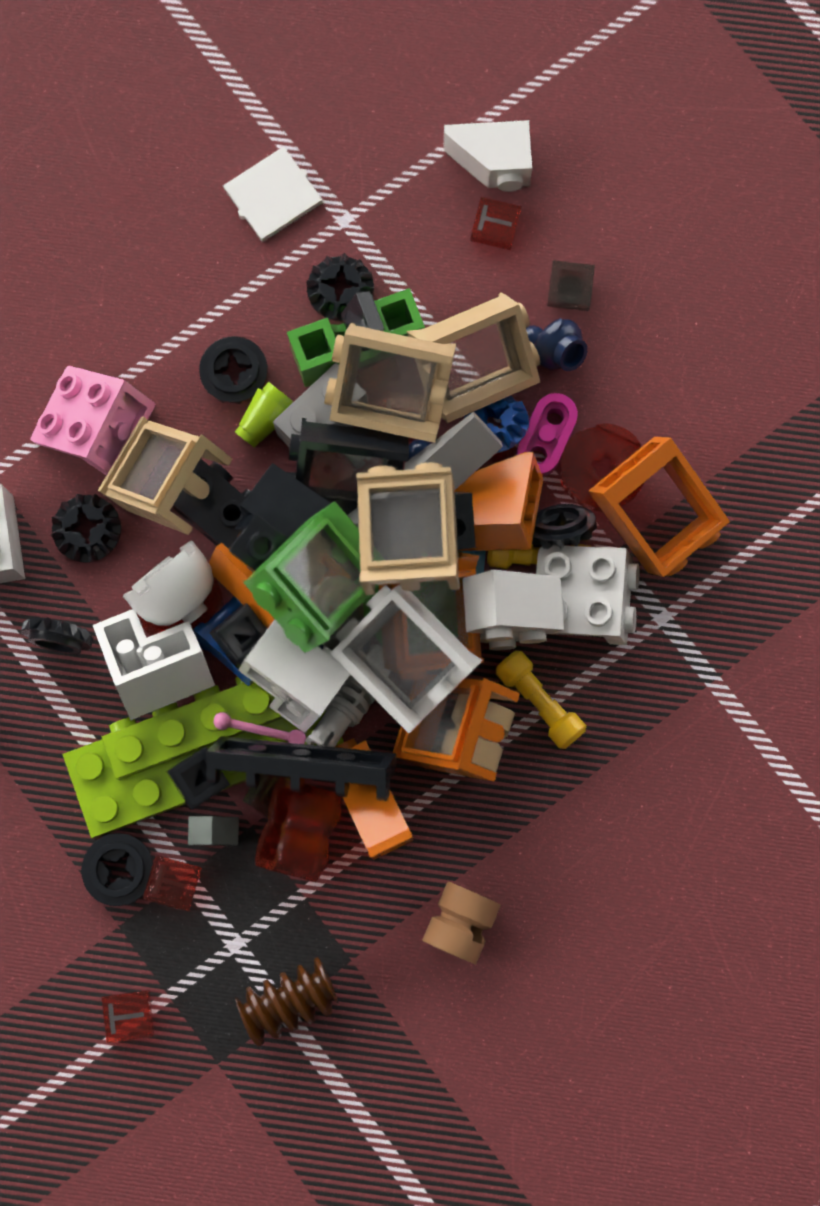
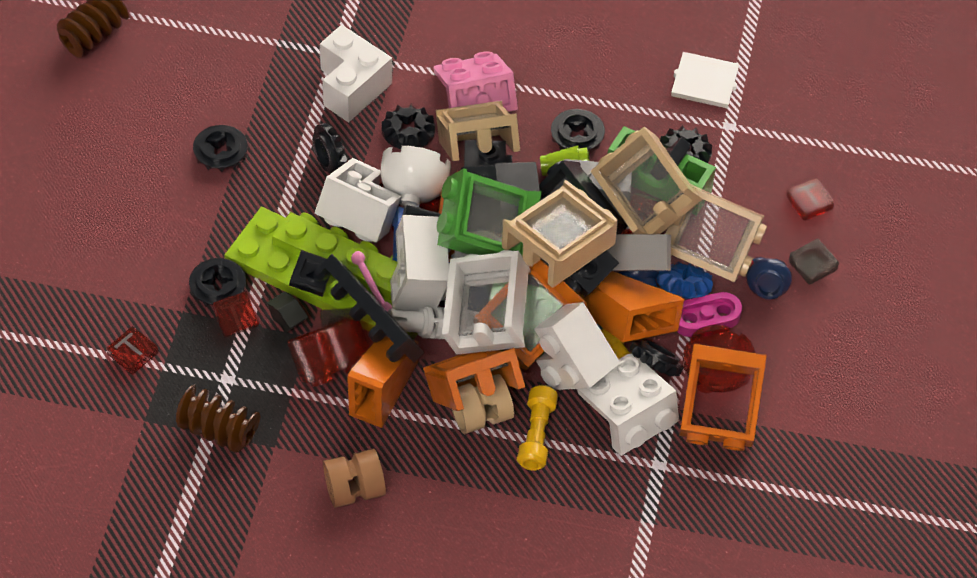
camera: 45 degrees right, 25 degrees down
(492, 152) = (852, 164): white slope -> none

